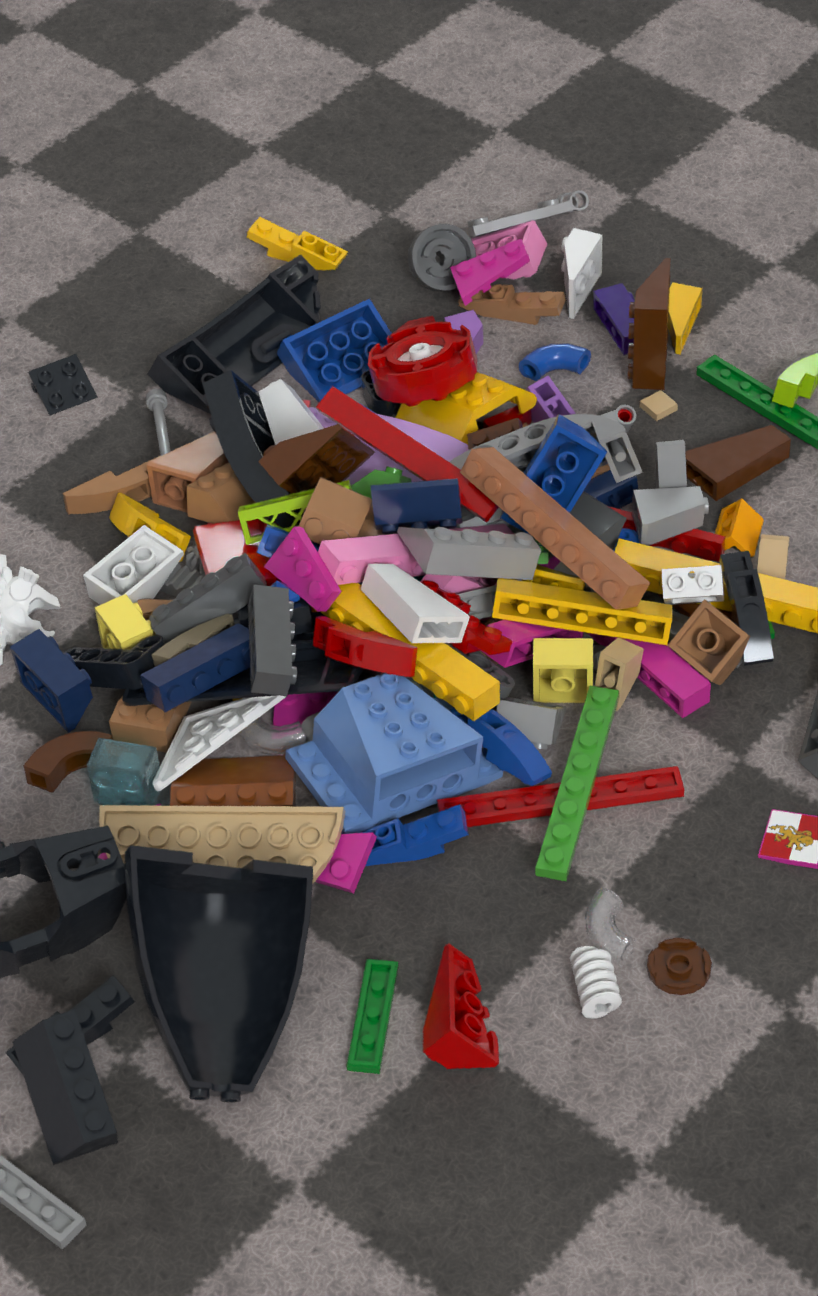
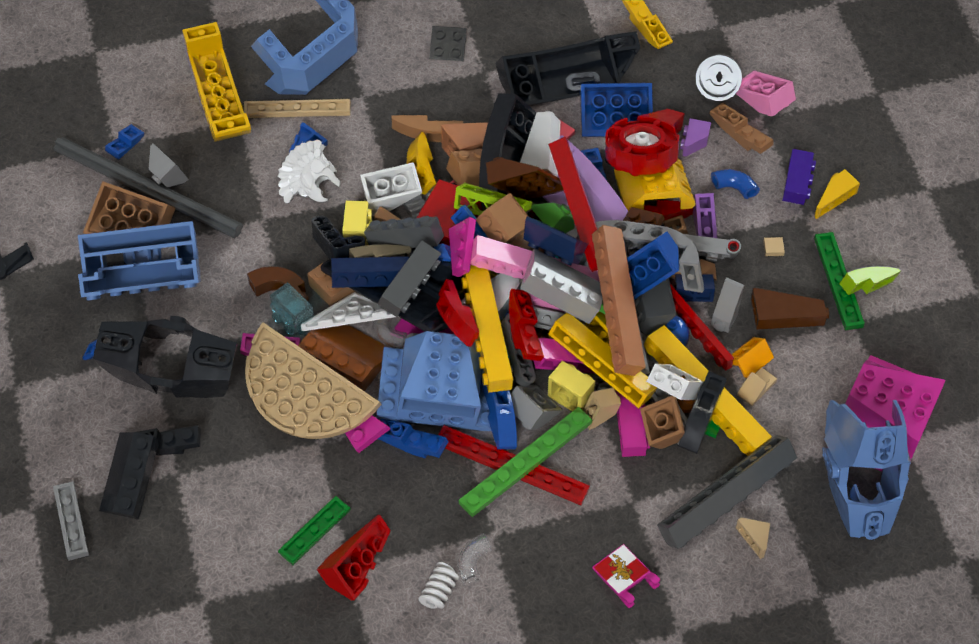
camera: 30 degrees right, 10 degrees up
(52, 678) = (298, 228): dark blue slope -> none
(157, 402) = (490, 83): light grey piece -> none
(217, 961) = (244, 452): black panel -> none
(413, 606) = (501, 305): white slope -> none
(484, 269) = (736, 99): dark pink wing -> none
(545, 209) = (800, 75): light grey hinge -> none
(580, 266) = (797, 129): white slope -> none
(650, 330) = (797, 196): reddish brown slope -> none
(667, 512) = (708, 324): light grey slope -> none
(671, 972) = (494, 605): reddish brown tile -> none

